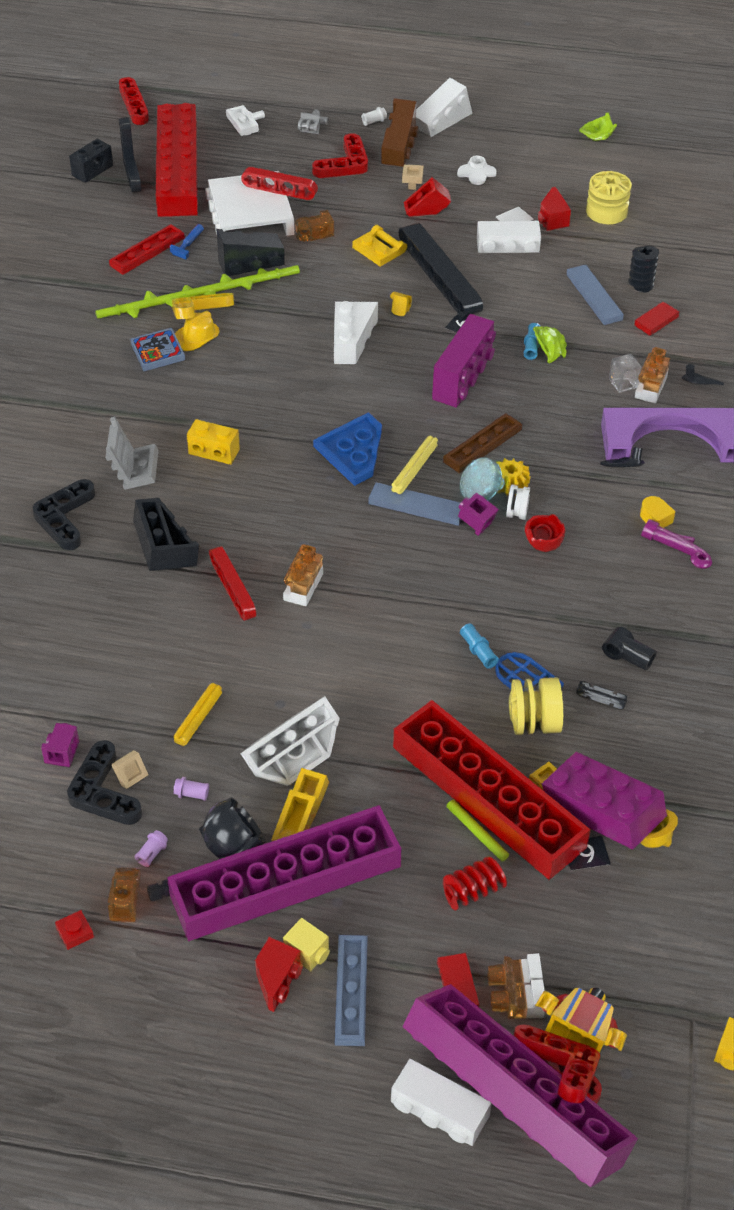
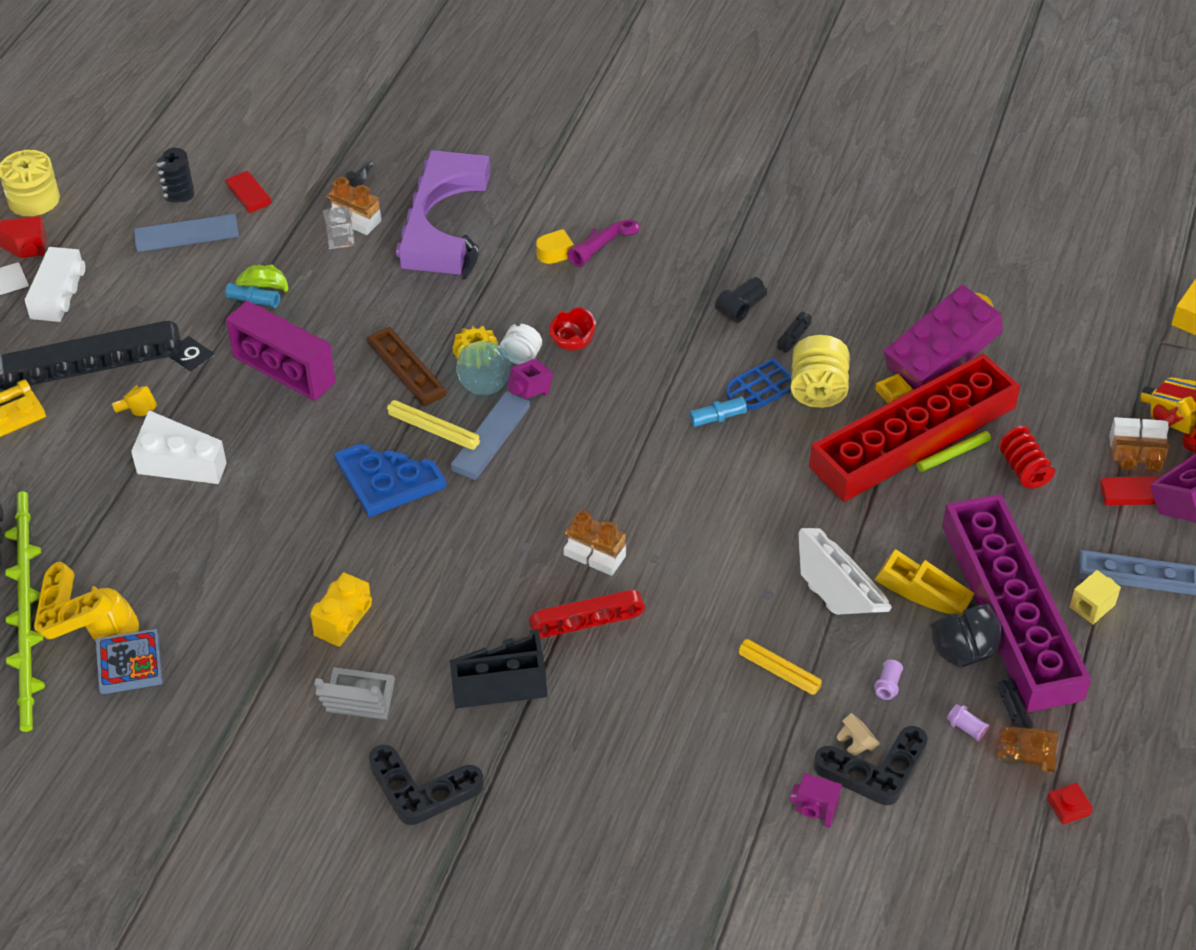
camera: 80 degrees left, 0 degrees up
(275, 969) = (1128, 625): red slope -> none

